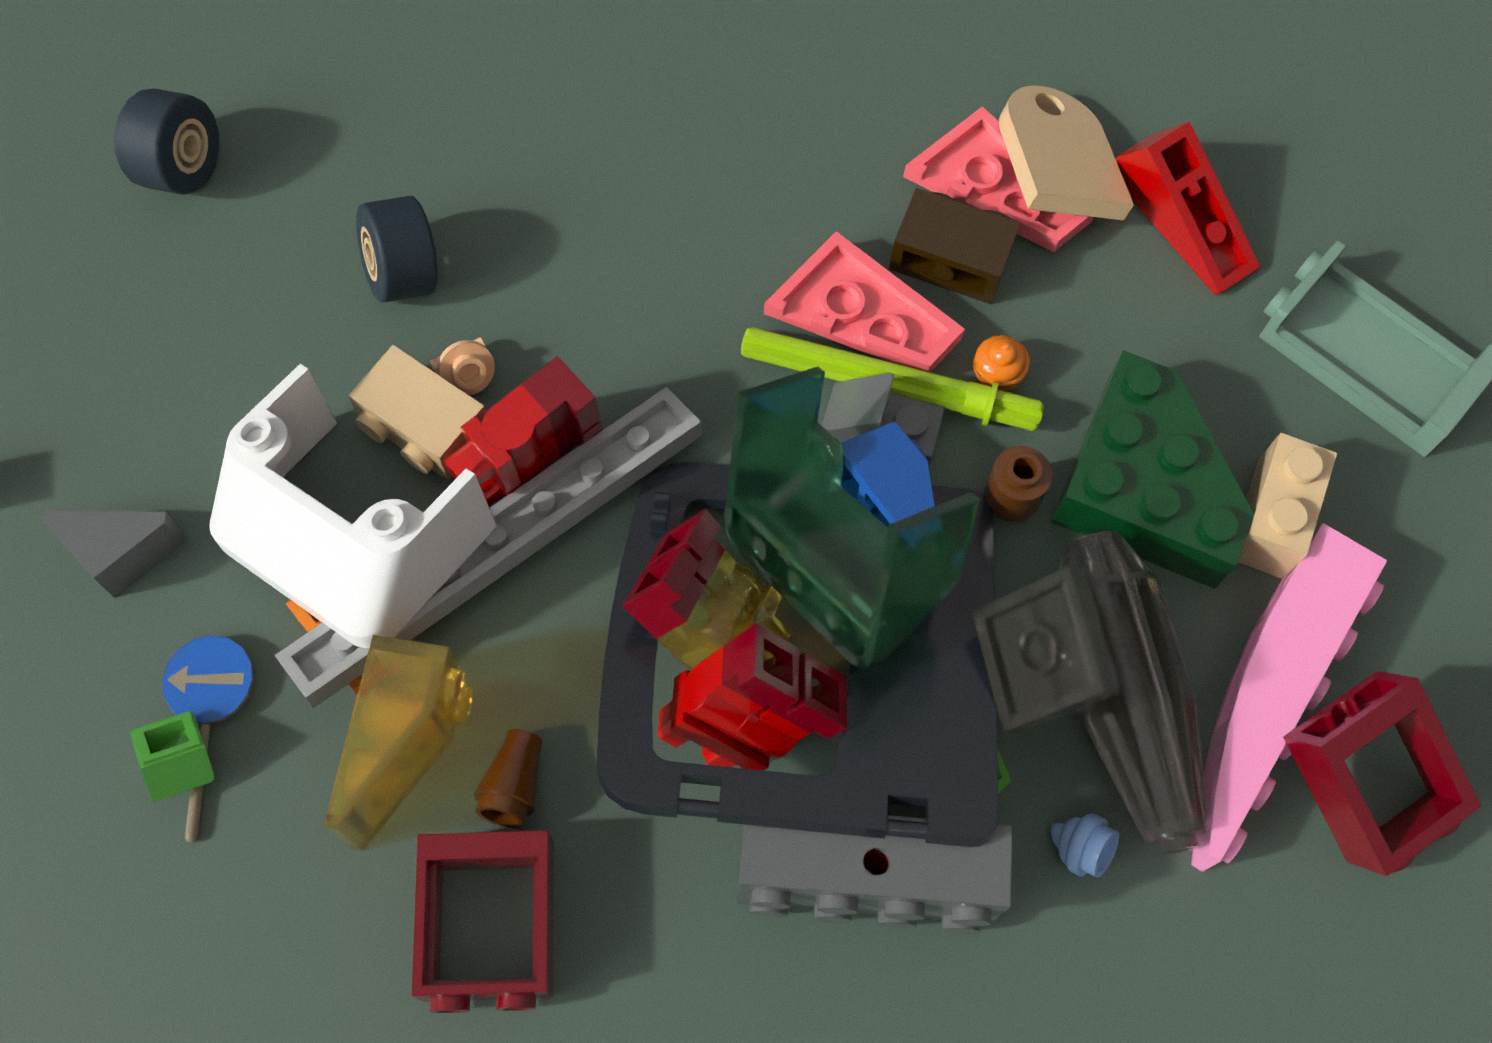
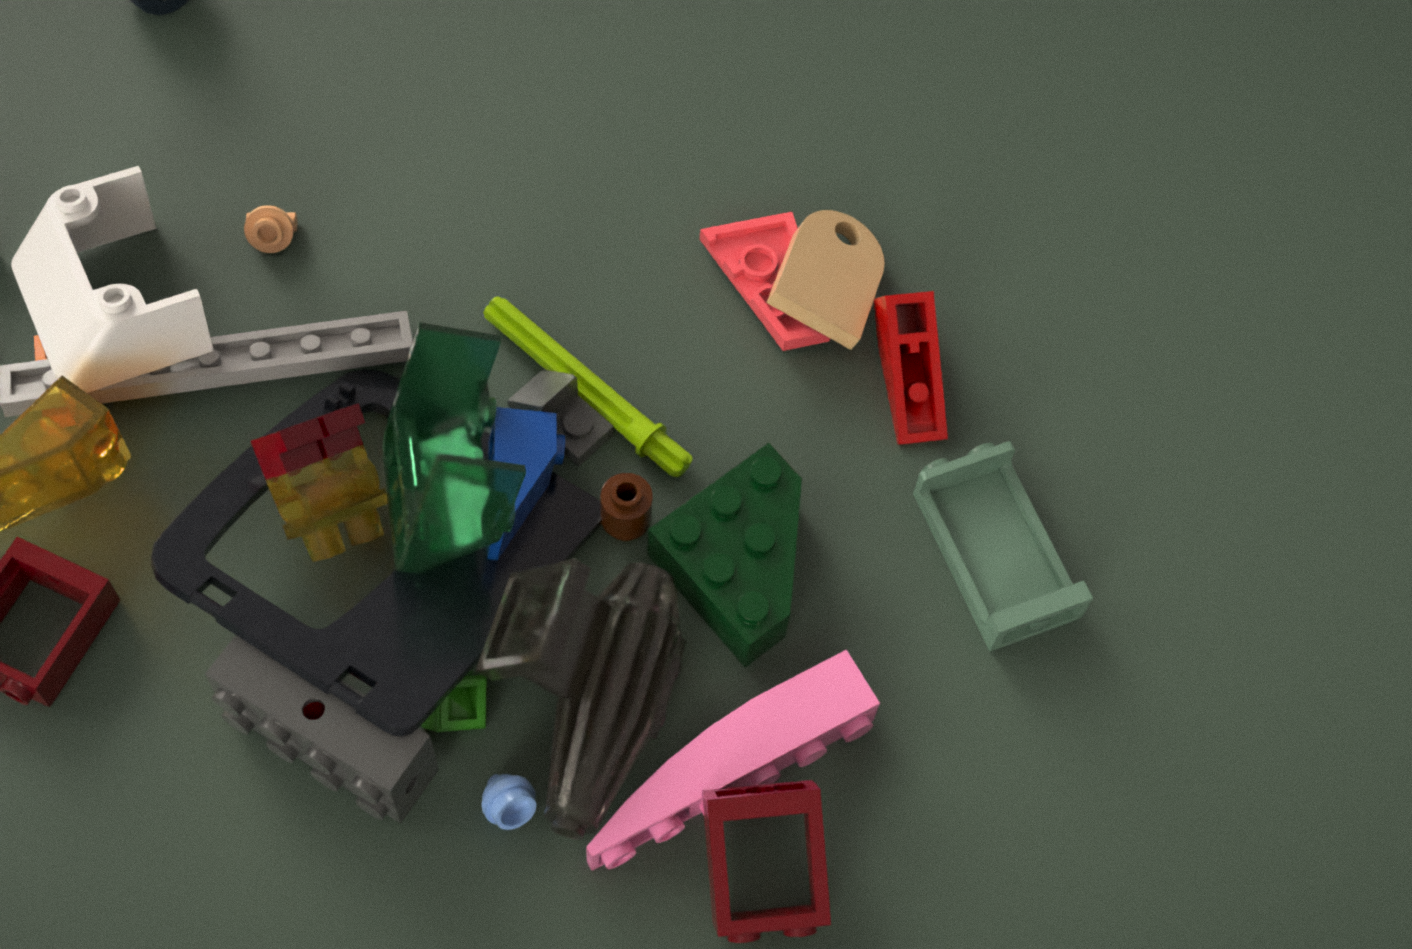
camera: 25 degrees right, 5 degrees down
(396, 248) = (269, 118): black wheel -> none
(413, 410) = (214, 246): tan brick -> none
(510, 782) = (112, 538): reddish brown cone -> none
(527, 431) = (269, 292): red hips -> none
(754, 707) = (303, 562): hips -> none
(865, 307) = (599, 322): coral wing -> none
(953, 245) = (700, 307): dark brown brick -> none
(1001, 361) = (682, 414): orange plate -> none
(1285, 503) = (830, 621): tan brick -> none

